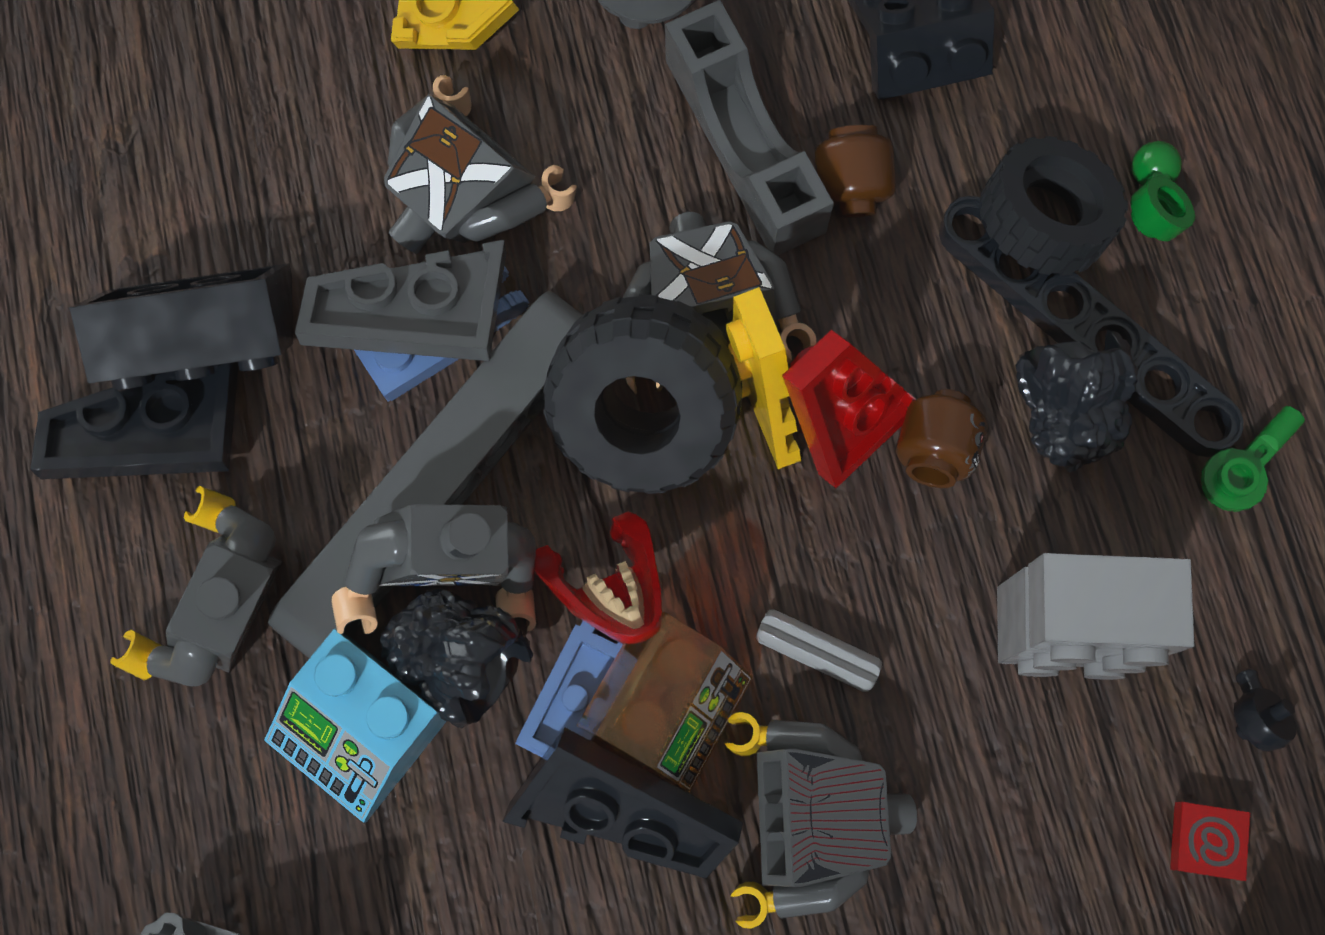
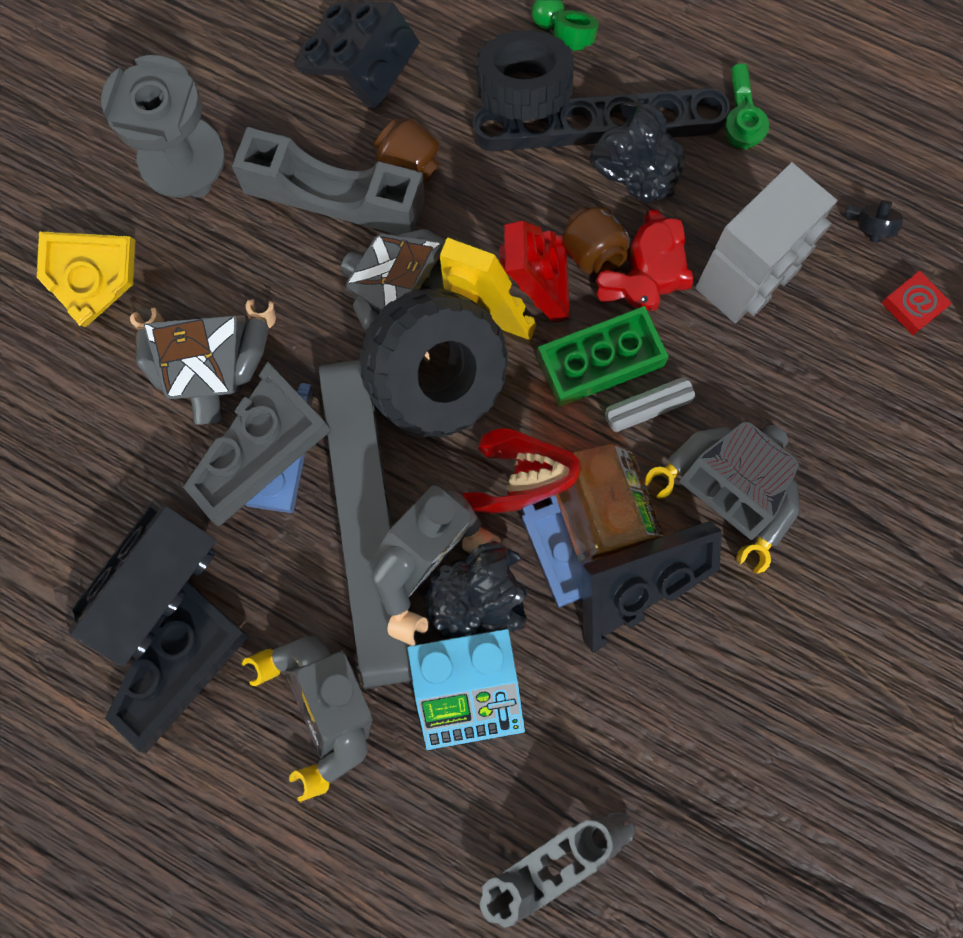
camera: 50 degrees left, 0 degrees up
(822, 555) = (601, 356): none -> green piece
(974, 523) = (656, 265): none -> red animal

